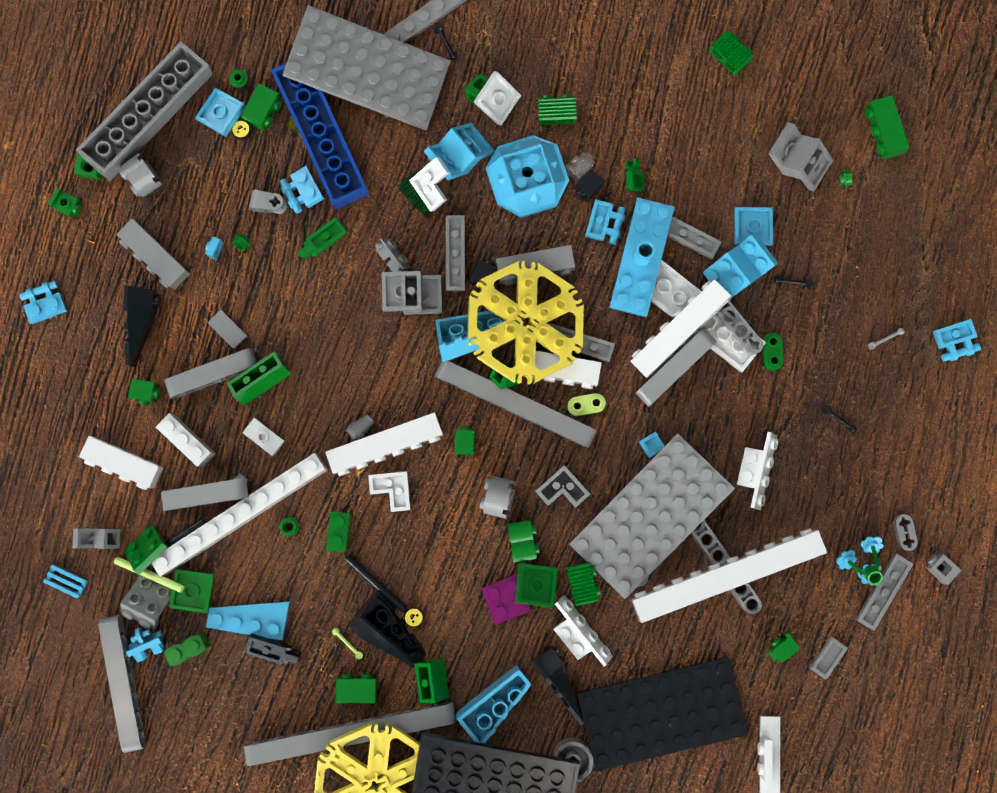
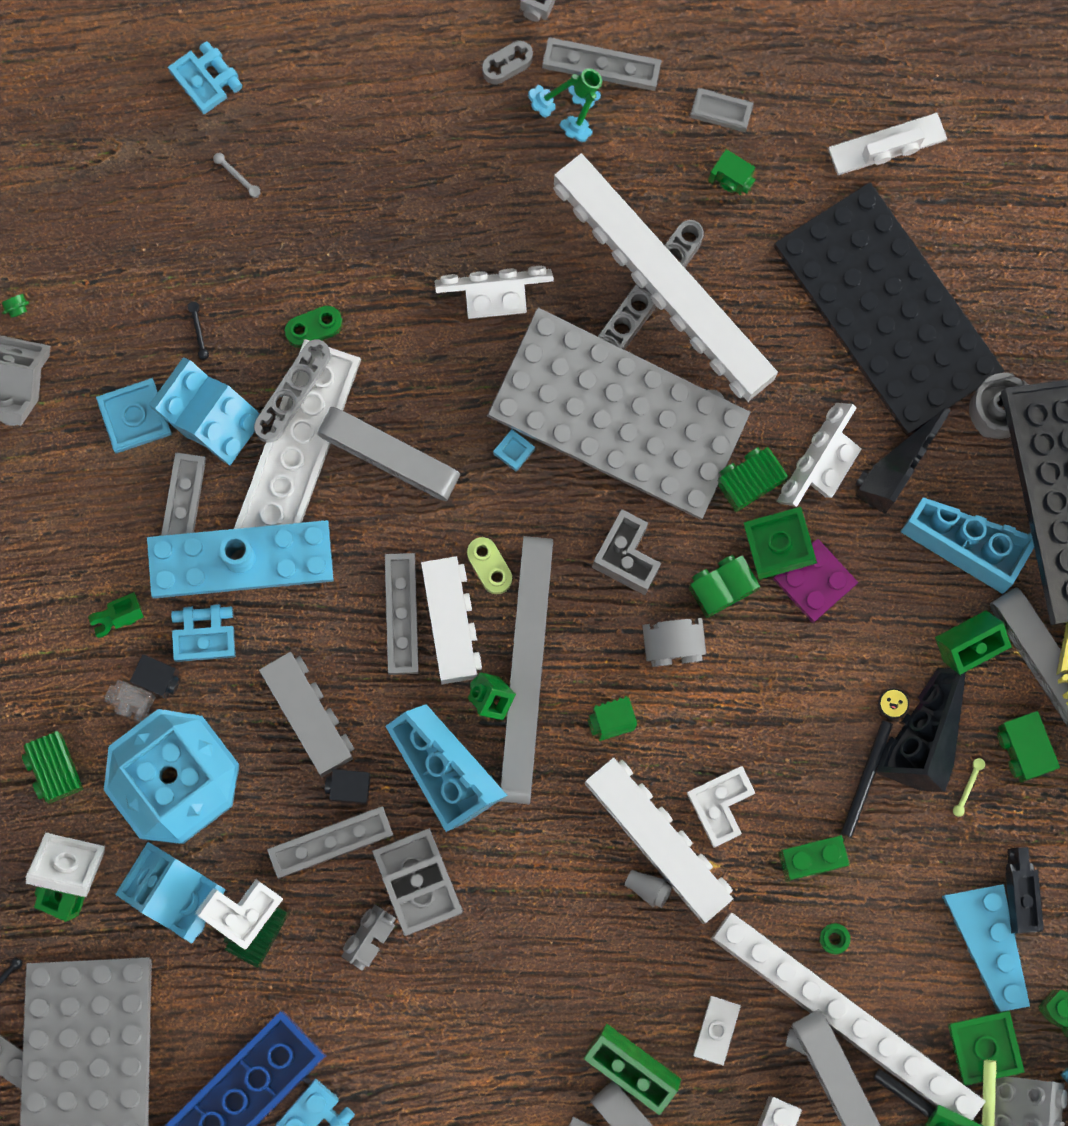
camera: 120 degrees left, 5 degrees down
(322, 239) = (379, 1056): green hinge -> none
(513, 326) = (422, 681): light yellow plate -> none
(681, 328) = (330, 464): white brick -> none
(826, 409) = (371, 224): black hinge -> none

